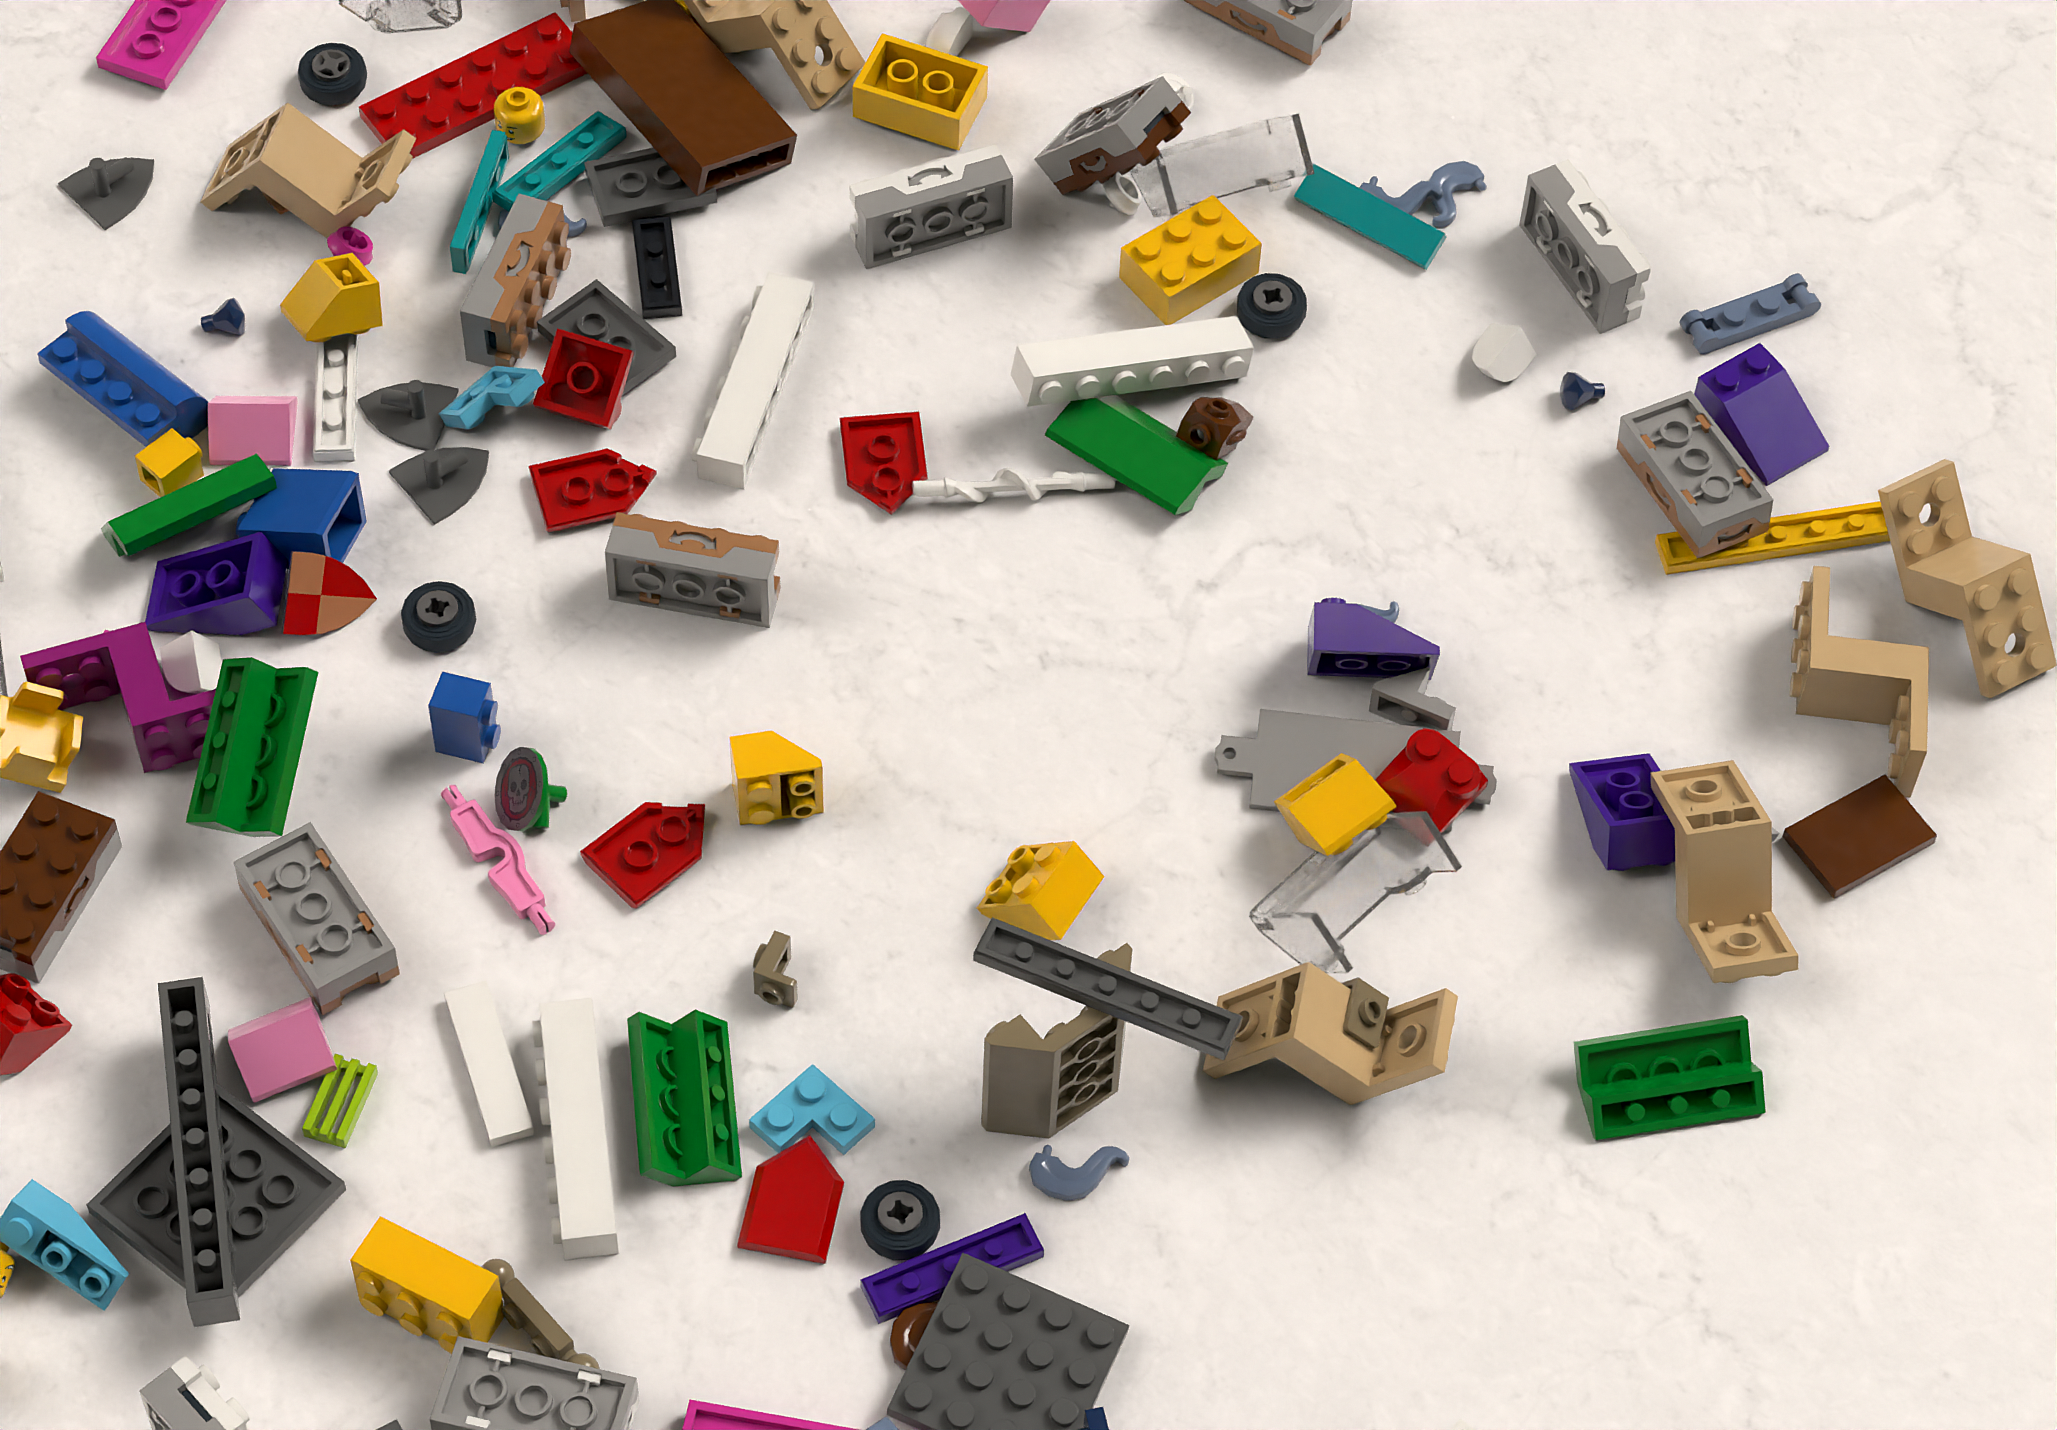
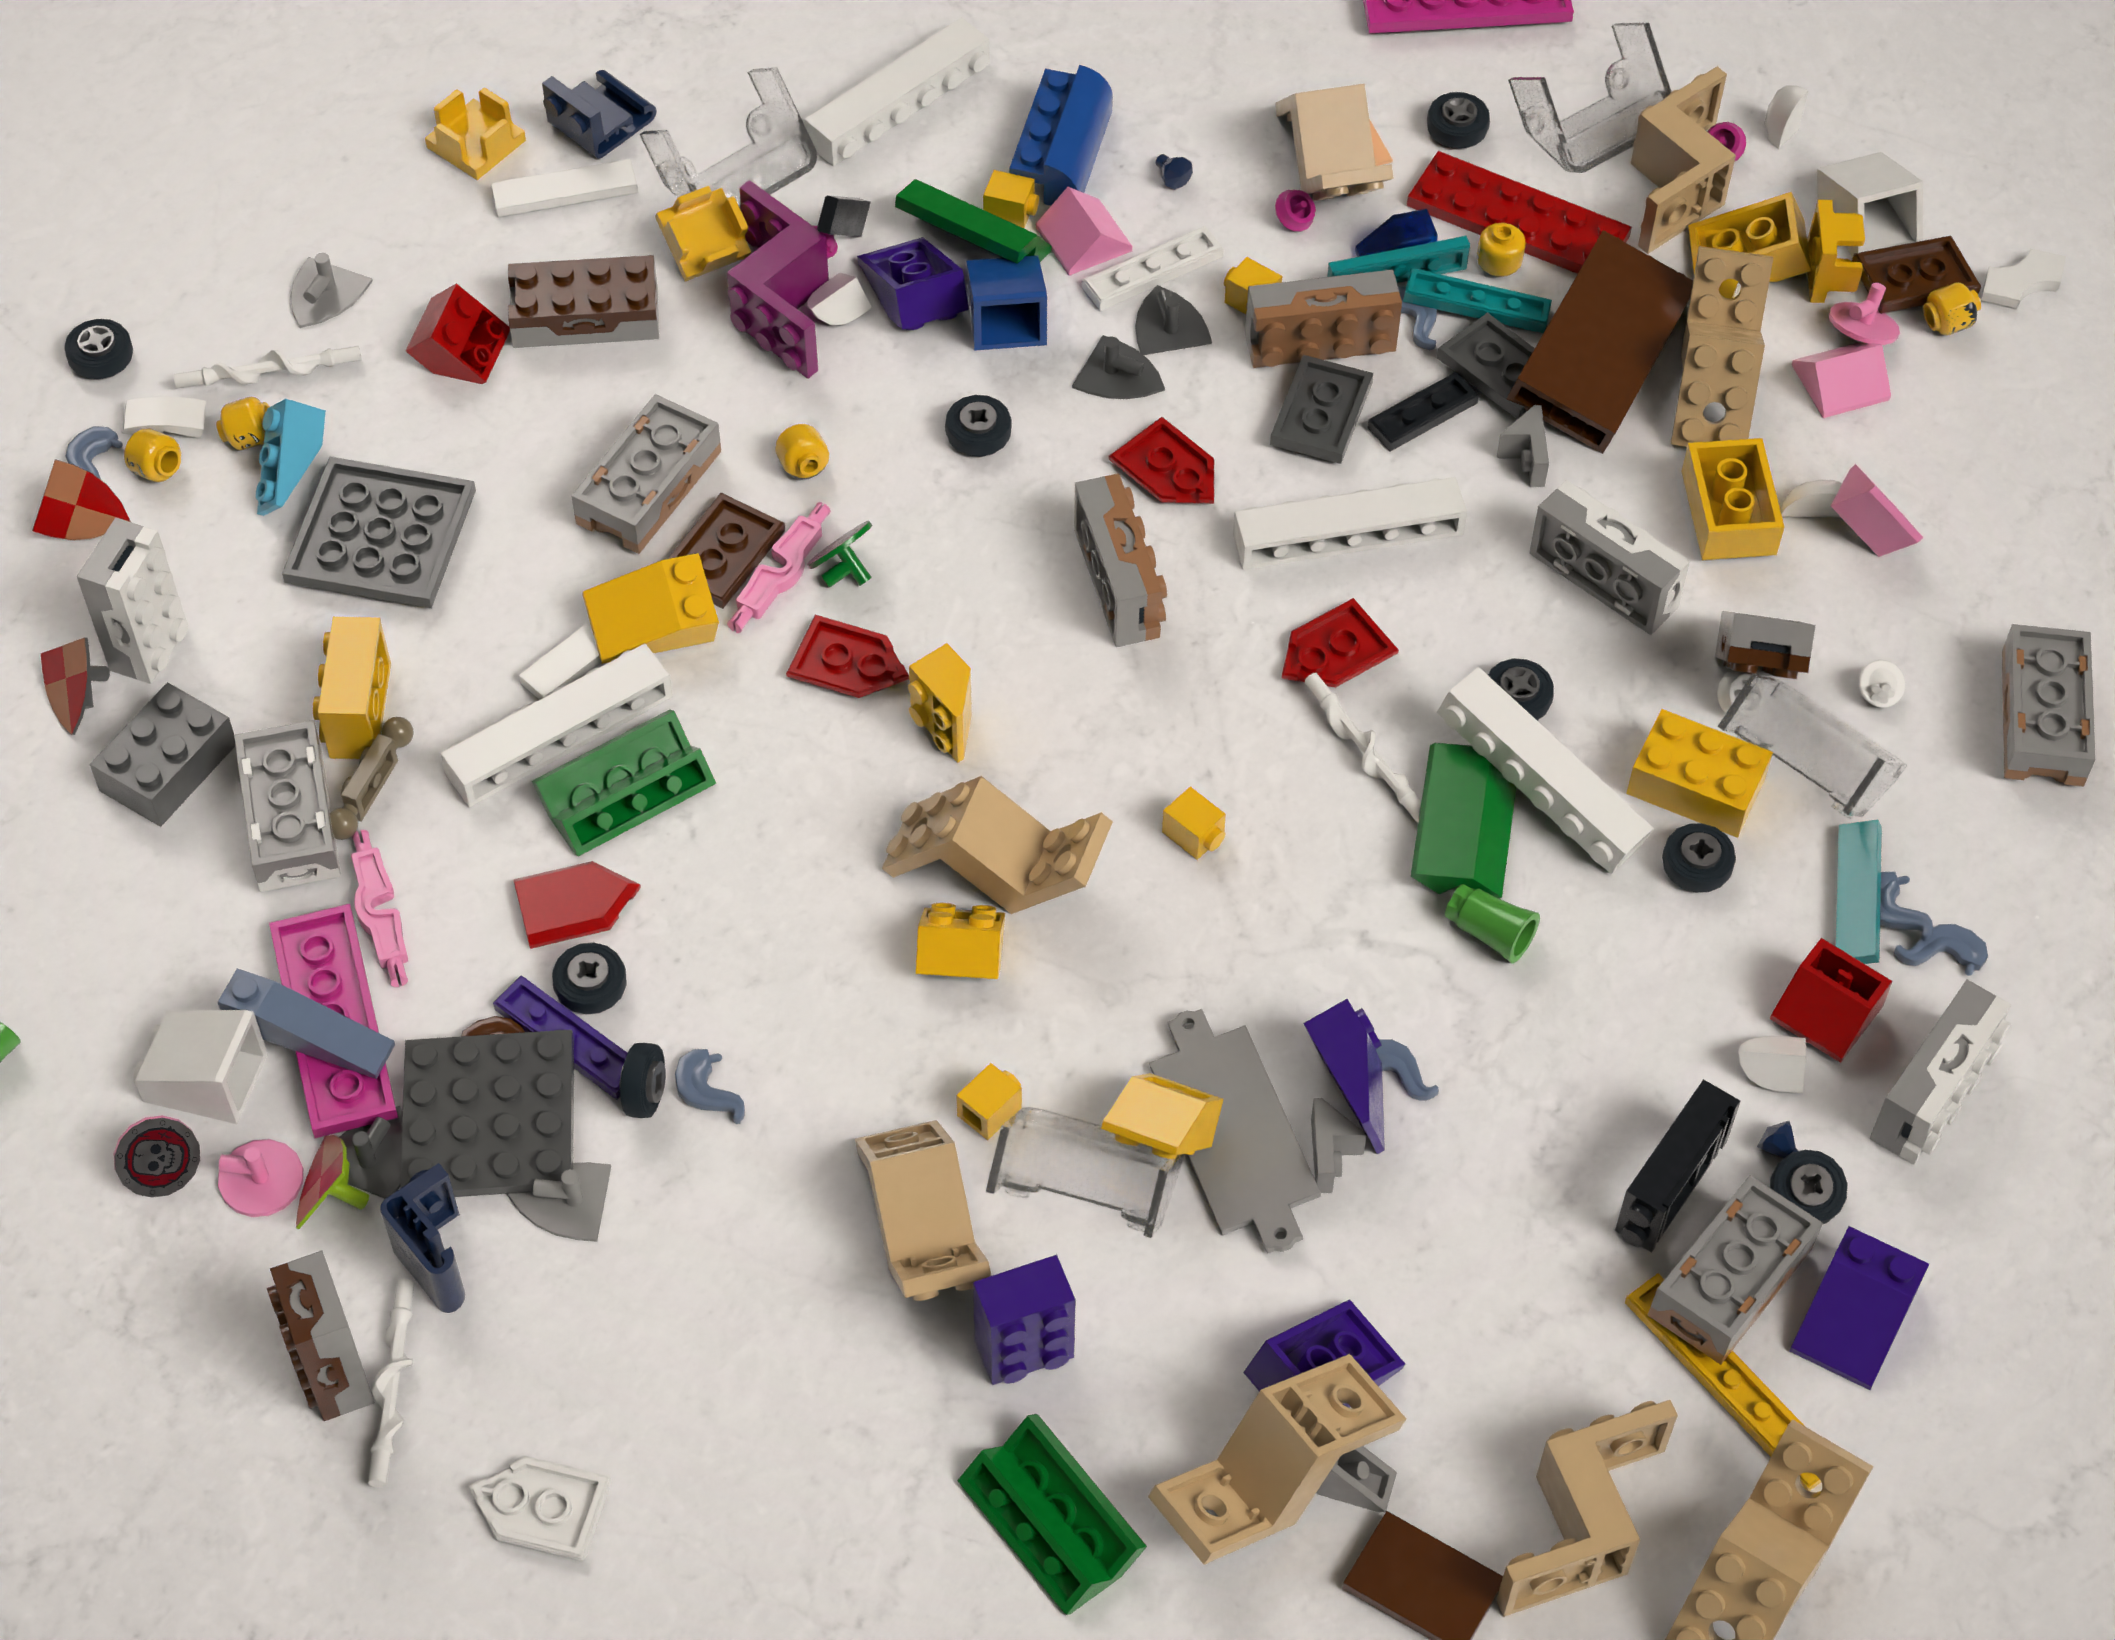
camera: 65 degrees right, 0 degrees up
(110, 187) = (1253, 47): dark grey shield -> none
(114, 601) = (843, 216): none -> black tile
(198, 1153) = (391, 490): dark grey brick -> none
(252, 748) = (753, 351): green slope -> none
(281, 1049) = (524, 507): bright pink slope -> none
(322, 595) = (944, 342): shield -> none
(334, 299) = (1225, 218): yellow slope -> none
(355, 1108) = (506, 564): lime tile -> none
(373, 775) = (802, 448): none -> yellow head
(426, 324) = (1244, 275): none -> yellow brick
(442, 900) = (730, 544): none -> reddish brown tile
(450, 186) = (1399, 232): none -> clear blue slope
(463, 717) = (880, 476): blue brick -> none
(497, 387) = (1212, 360): medium azure plate -> none
(497, 981) = (655, 605): none -> yellow slope
(584, 379) = (1255, 406): red slope -> none
(724, 1383) = (382, 924): none -> bright pink piece
(756, 202) = (1527, 441): none -> light grey slope
(769, 967) = (775, 786): dark tan bracket -> none
(812, 1103) = (669, 876): medium azure plate -> none
(969, 806) = (997, 845): none -> tan bracket
(1009, 333) = (1525, 677): none -> wheel
(1019, 650) = (1194, 823): none -> yellow brick
(1050, 1082) = (775, 1021): dark tan slope -> none
(1055, 1213) = (642, 1080): none -> black wheel
(1108, 988) = (800, 982): dark grey tile -> none
(1146, 1346) = (568, 1206): none -> light grey shield
(1221, 423) = (1530, 867): reddish brown hand -> none
(1227, 942) = (989, 1100): none -> yellow brick
(1256, 478) = (1493, 921): none -> bright green plant
(1365, 1012) = (953, 1222): dark tan bracket -> none
(1432, 778) = (1247, 1189): red slope -> none
(1470, 284) = (1831, 1000): none -> red slope
(1497, 1000) = (1024, 1320): none -> dark purple brick
(1579, 466) = (1676, 1166): none -> black door
(1631, 386) = (1817, 1169): none -> black wheel
(1750, 315) = (1981, 1256): sand blue plate -> none

